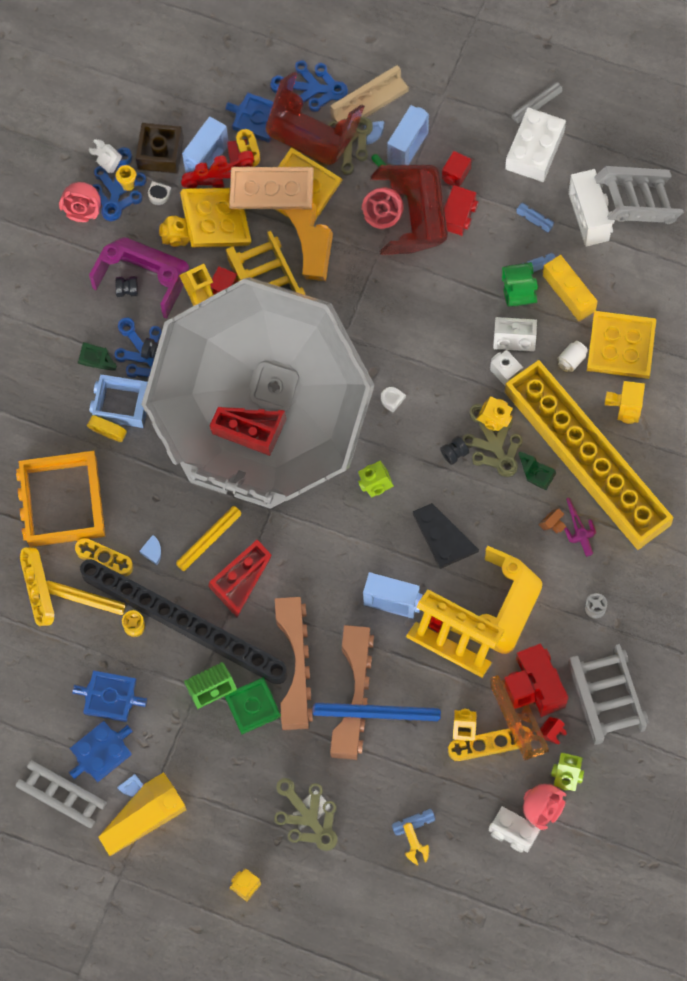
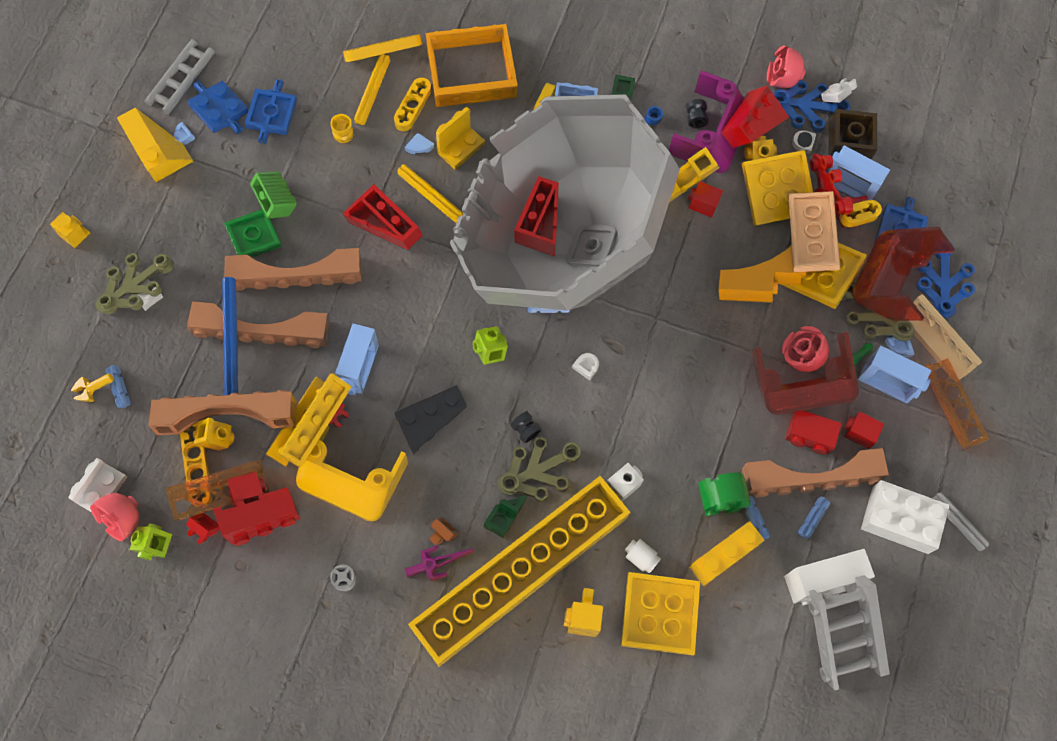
camera: 80 degrees right, 0 degrees up
(126, 177) = (814, 103): yellow cone -> none
(144, 232) = (754, 117): none -> red wedge
(153, 509) = (457, 139): none -> yellow bracket
(176, 613) = (340, 180): black beam -> none
(237, 259) = (715, 218): yellow fence -> none
(438, 98) = (947, 408): none -> clear orange fence
(444, 667) = (175, 415): none -> nougat arch
(491, 177) = (768, 477): none -> nougat arch
(495, 414) = (574, 469): yellow brick -> none
(515, 334) = (667, 492): white bracket -> none
(586, 689) = (222, 571): light grey fence -> none

